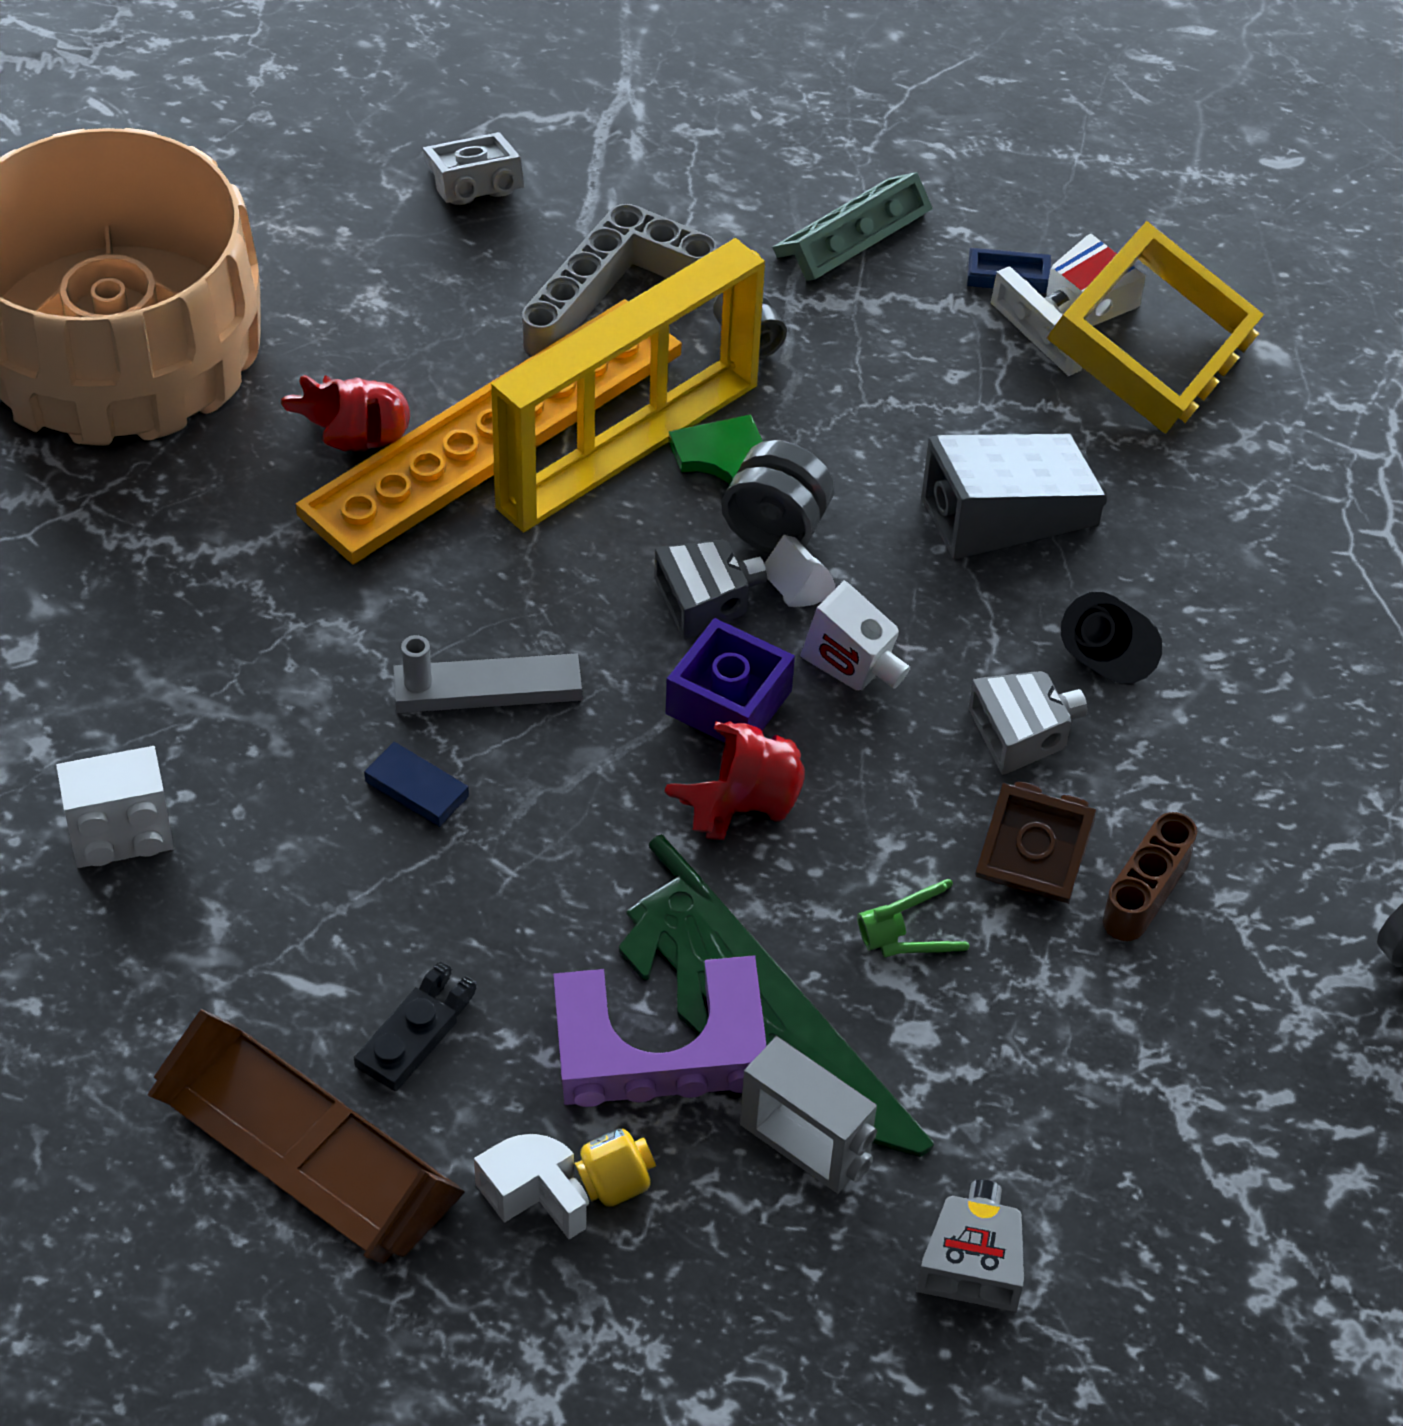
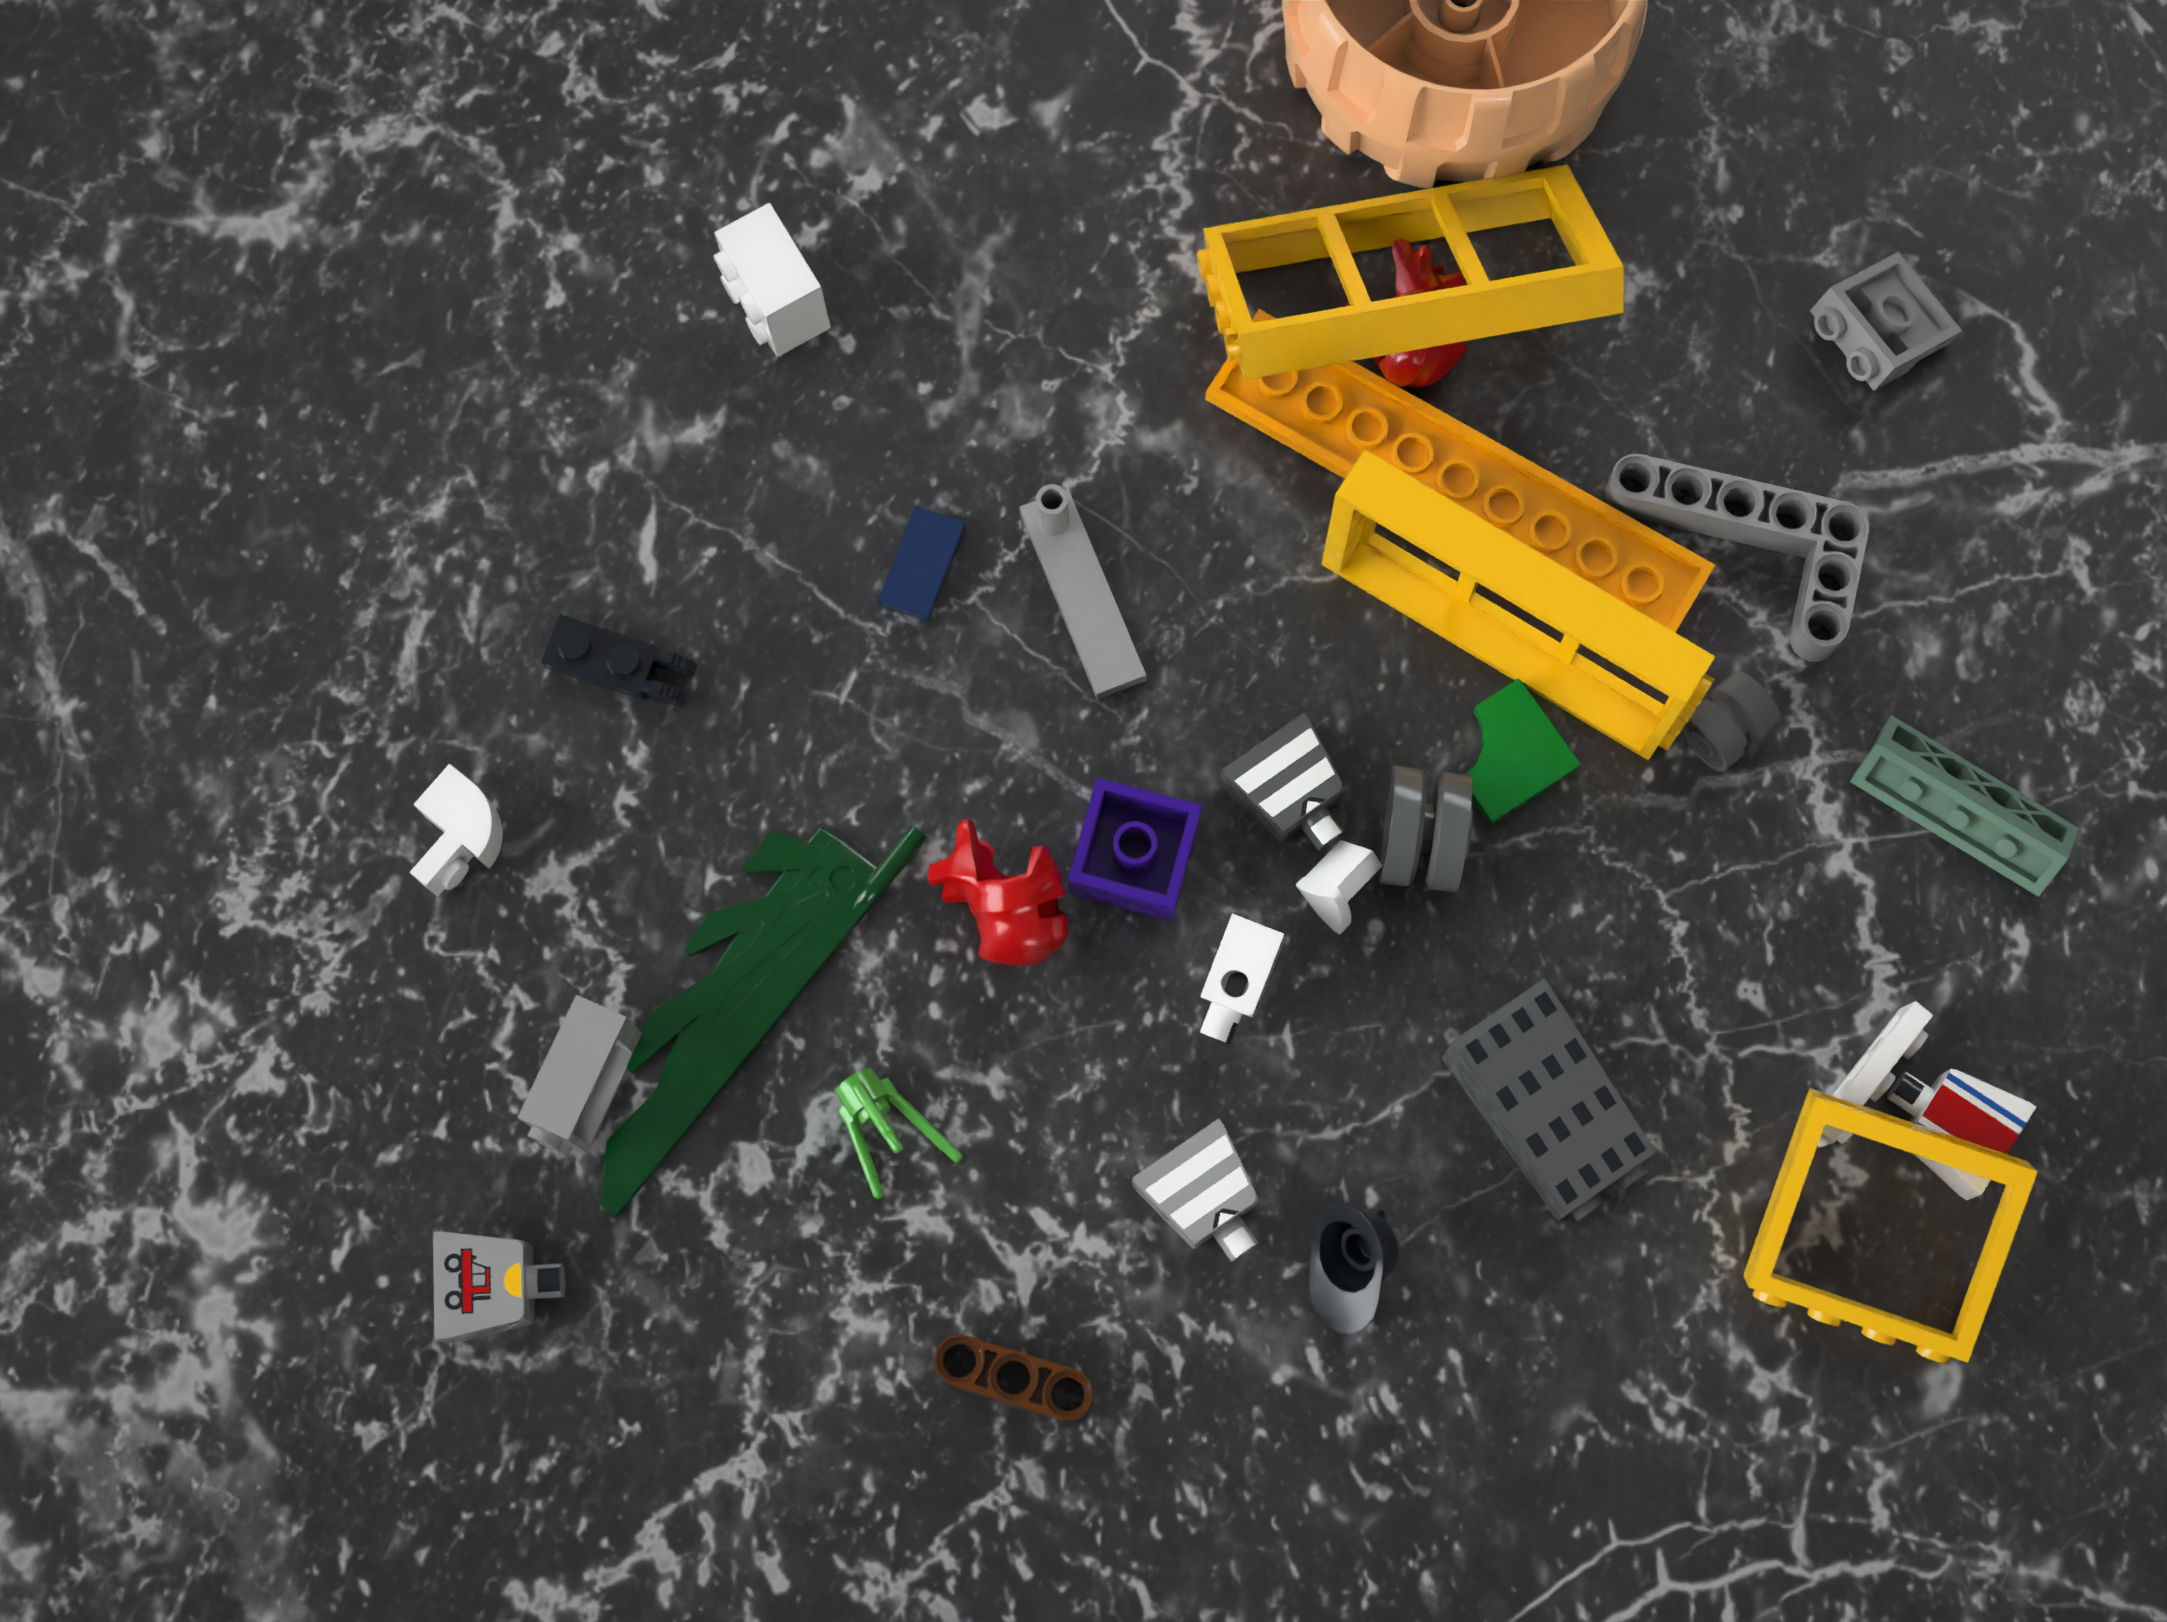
camera: 80 degrees right, 25 degrees up
(303, 1138) = (462, 604): reddish brown piece -> none
(393, 272) = (1418, 320): none -> yellow window
(605, 1068) = (608, 851): medium lavender arch -> none
(615, 1167) = (492, 903): yellow head -> none
(986, 262) = (1962, 1017): dark blue tile -> none
(1036, 841) = (1023, 1241): reddish brown plate -> none

